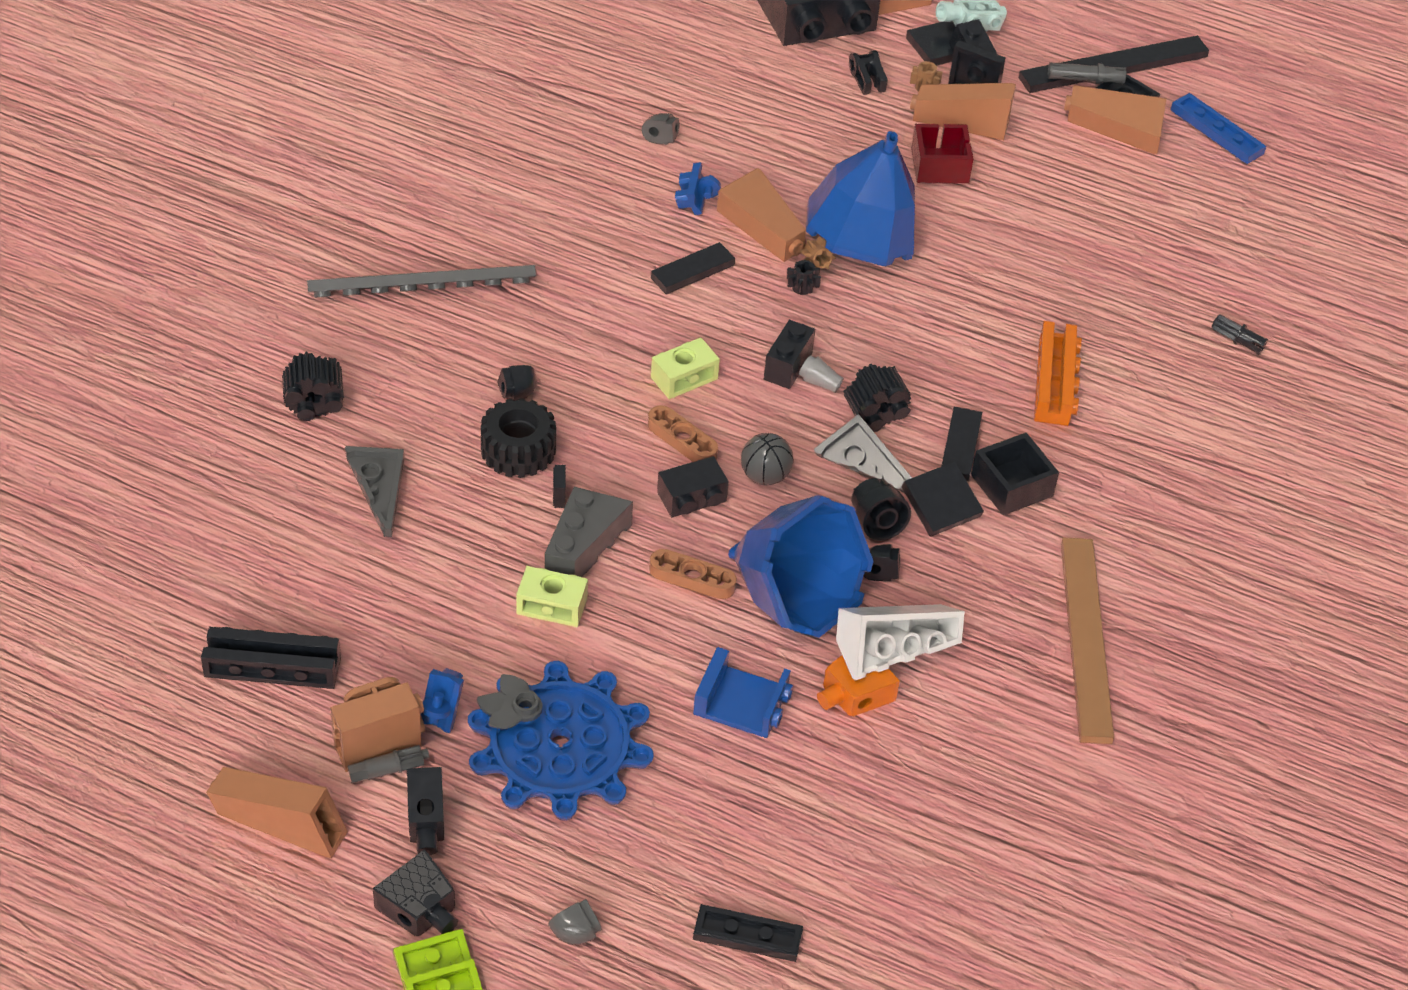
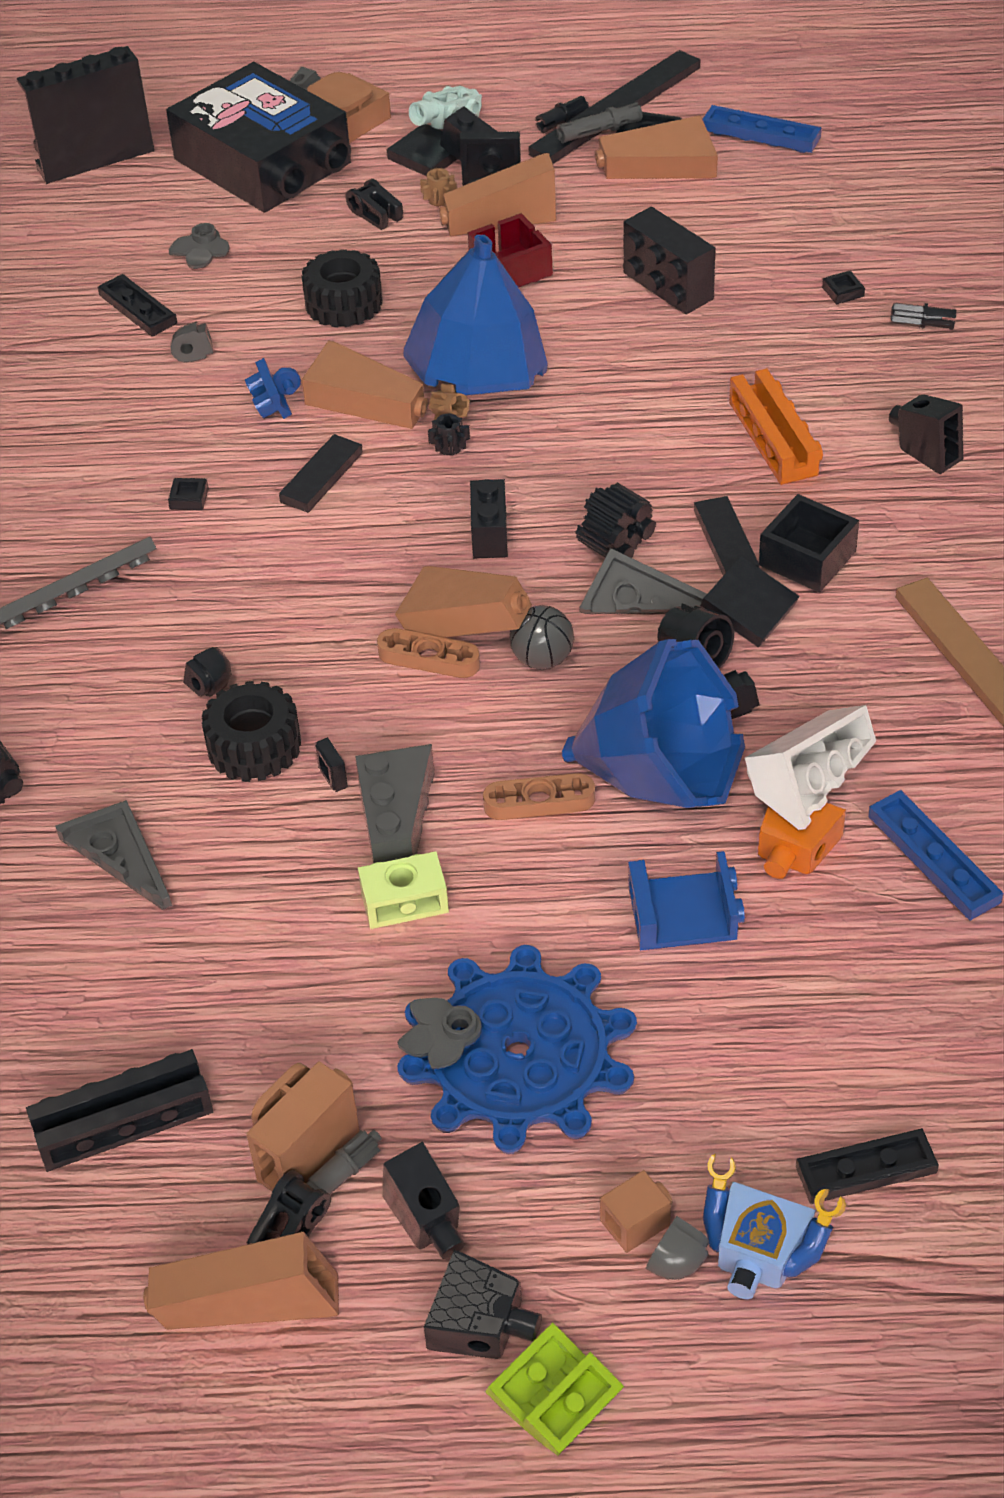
camera: 20 degrees left, 0 degrees up
(338, 774) = (299, 1206): none -> black piece
(442, 698) = (361, 1059): blue hips -> none
(566, 883) = (636, 1210): none -> nougat brick
(587, 244) = (188, 494): none -> black tile
(639, 939) = (762, 1234): none -> torso
(641, 83) = (137, 305): none -> black tile
(684, 368) = (384, 579): yellowish green brick -> none
(692, 486) = (478, 702): black piece -> none
(716, 55) = (200, 246): none -> dark grey plate
(721, 408) = (462, 603): none -> nougat slope
(797, 130) = (342, 288): none -> black tyre
(820, 374) = (533, 526): light grey cone -> none
(949, 744) = (935, 855): none -> blue plate
(1060, 208) = (669, 260): none -> black brick
(1065, 53) = (561, 113): none -> black axle
(1173, 428) = (930, 431): none -> black torso
(1193, 285) = (843, 287): none -> black tile

